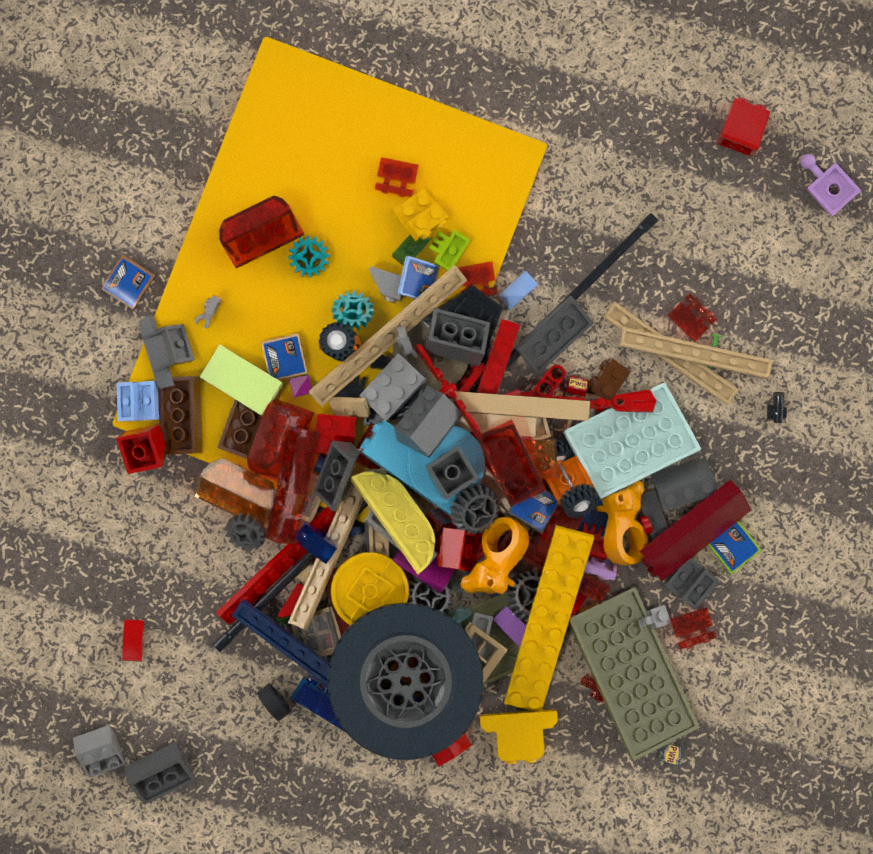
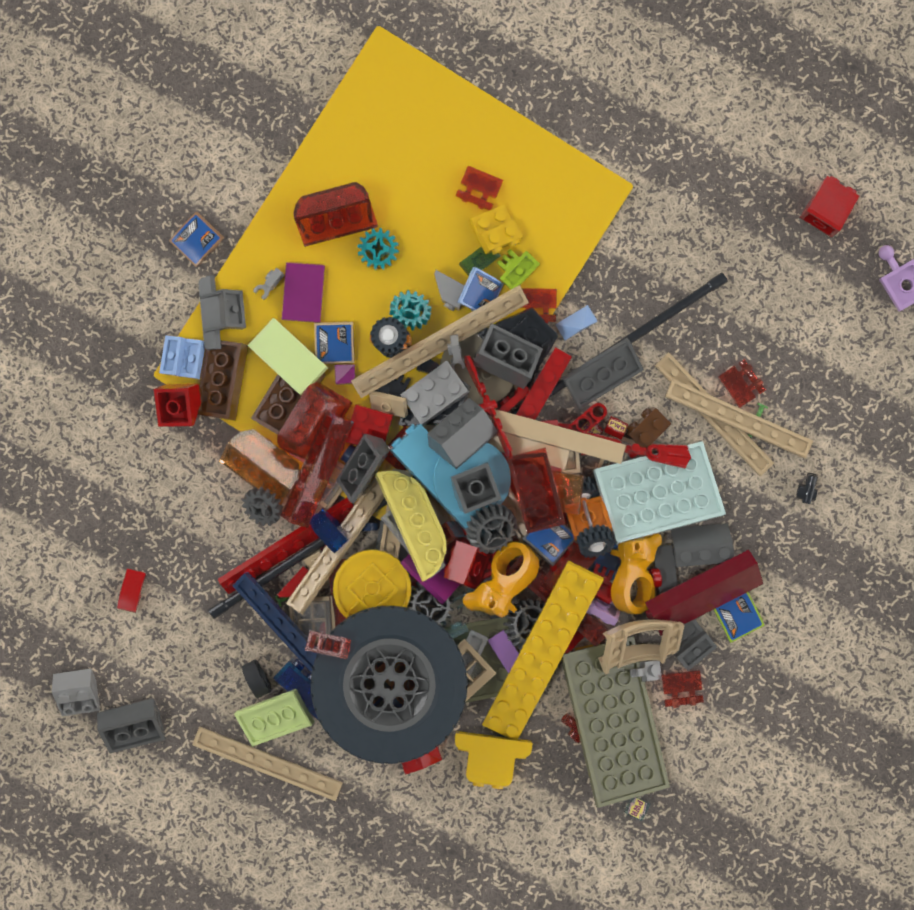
camera: 15 degrees right, 0 degrees up
(243, 314) = (303, 292): none -> magenta tile
(299, 736) = (274, 717): none -> yellowish green tile
(301, 783) = (267, 763): none -> tan tile
(355, 654) = (344, 647): none -> clear red slope
(625, 608) = (620, 655): none -> tan wedge

